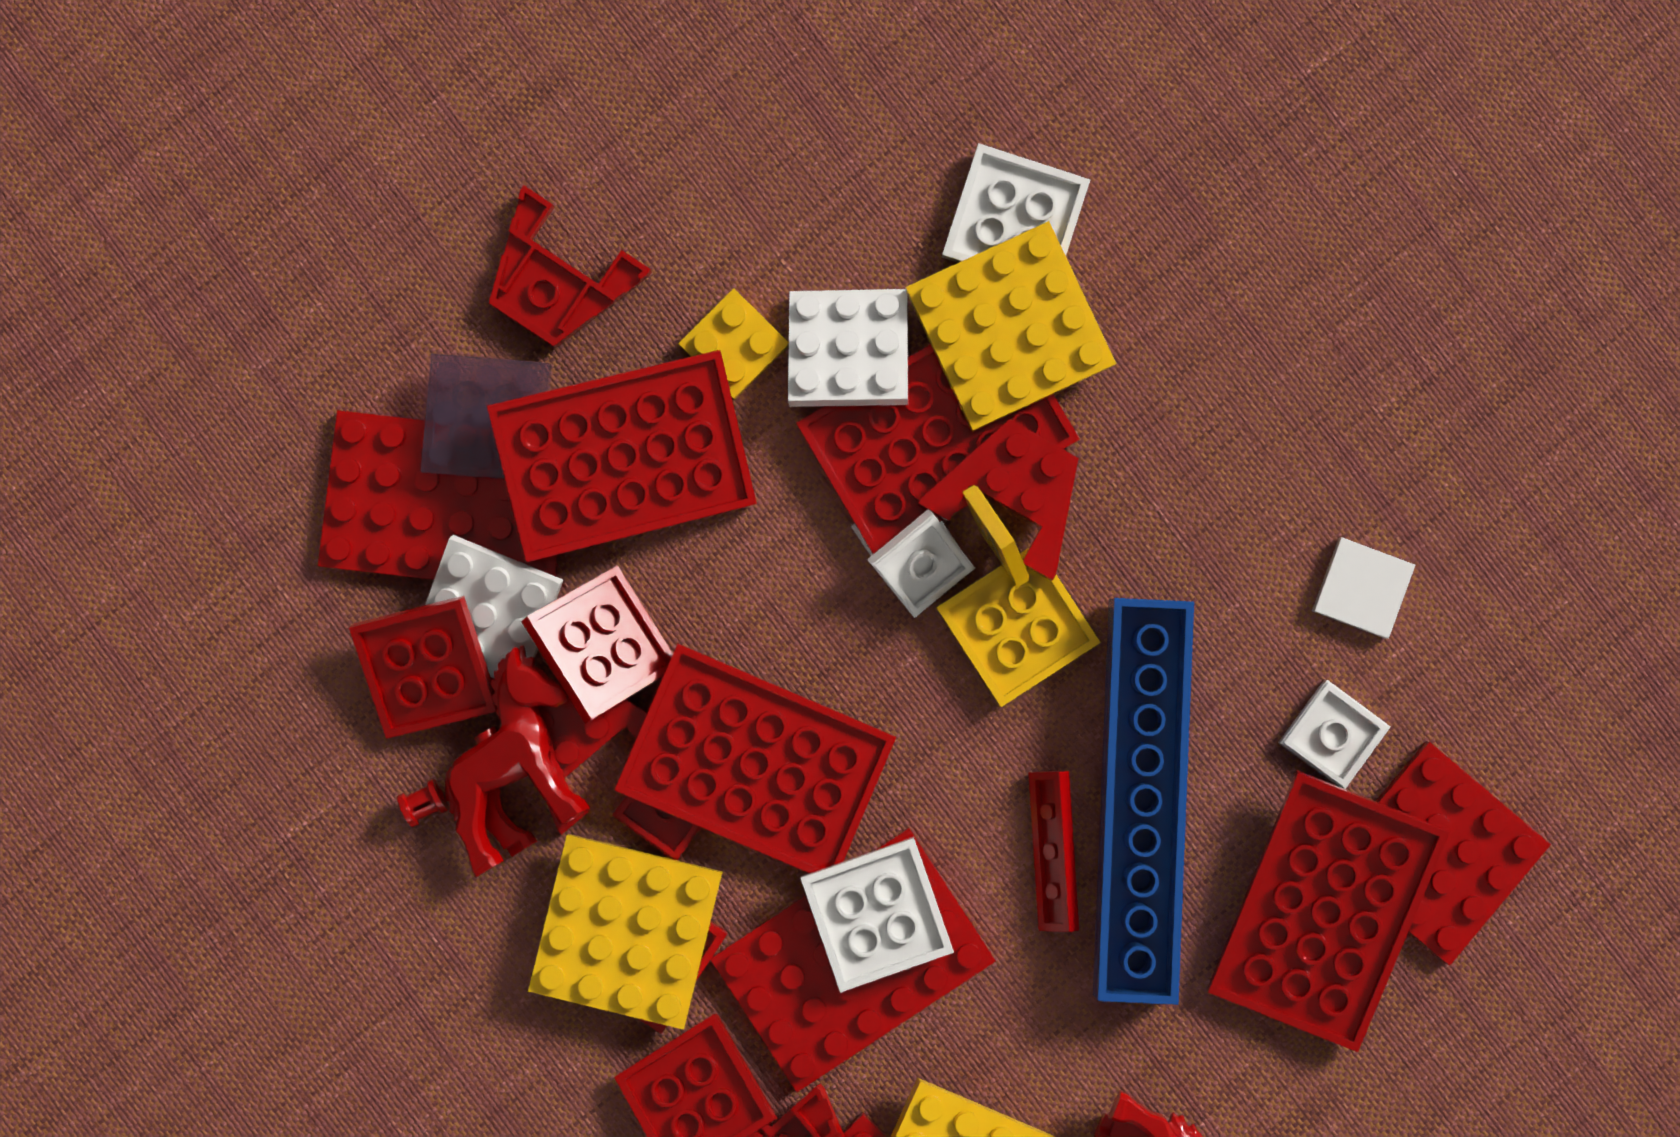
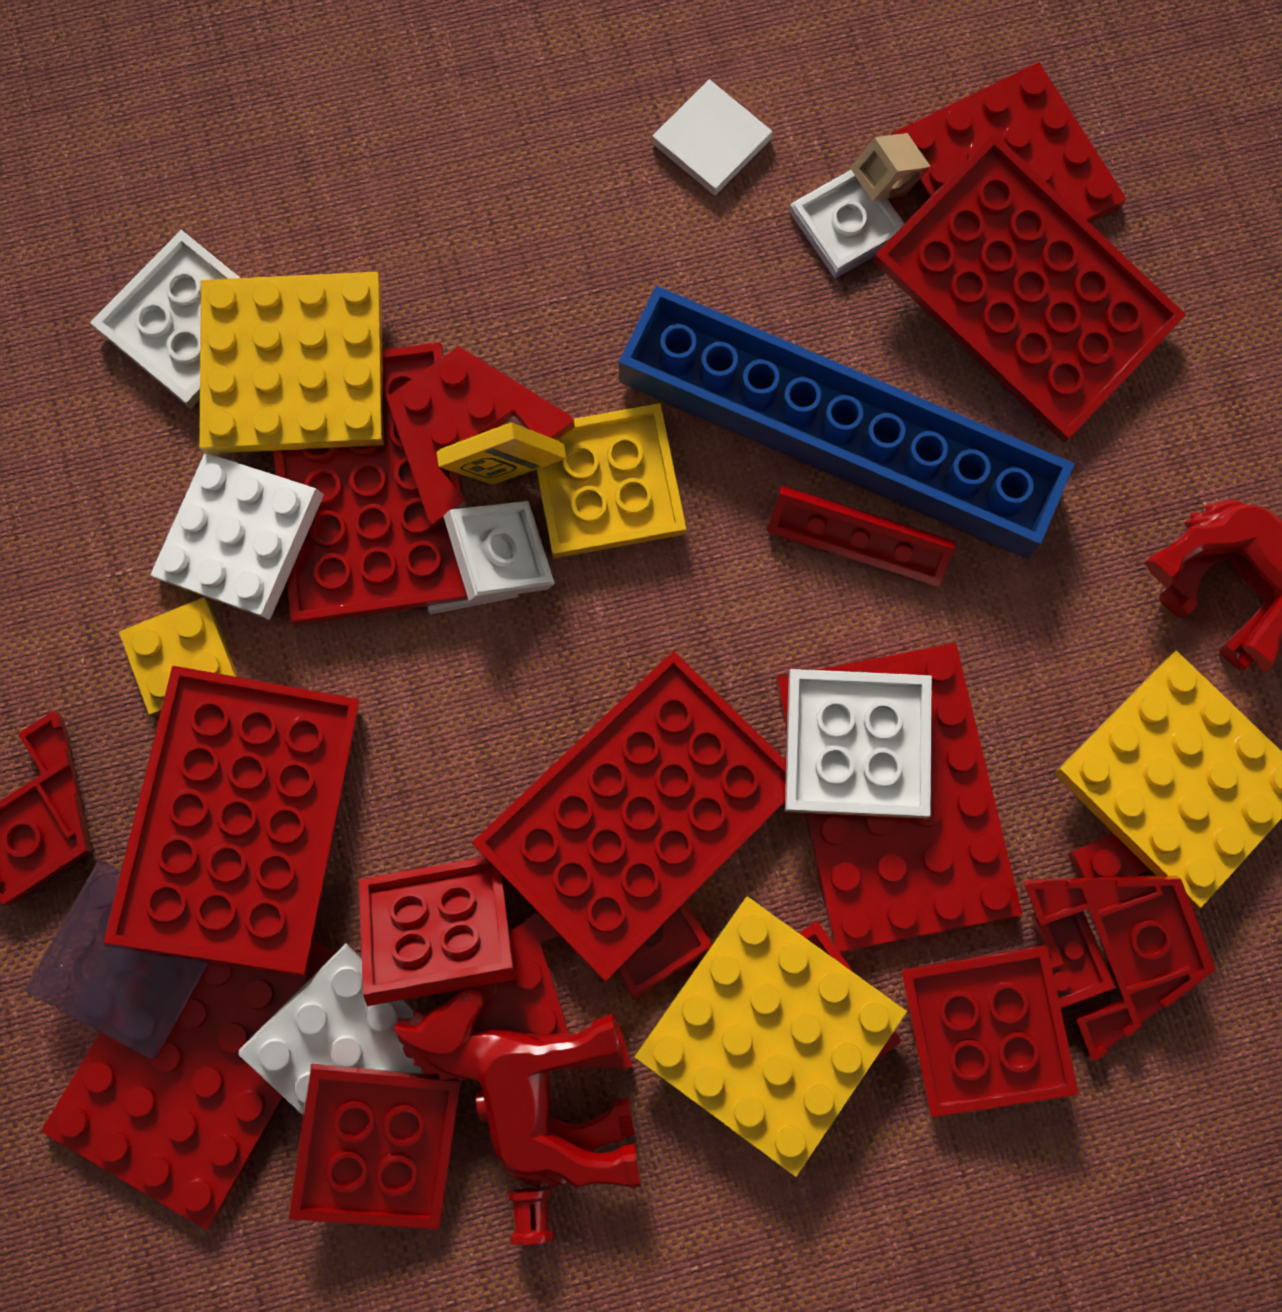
camera: 65 degrees left, 10 degrees down
(1391, 753) = (889, 166): none -> tan brick

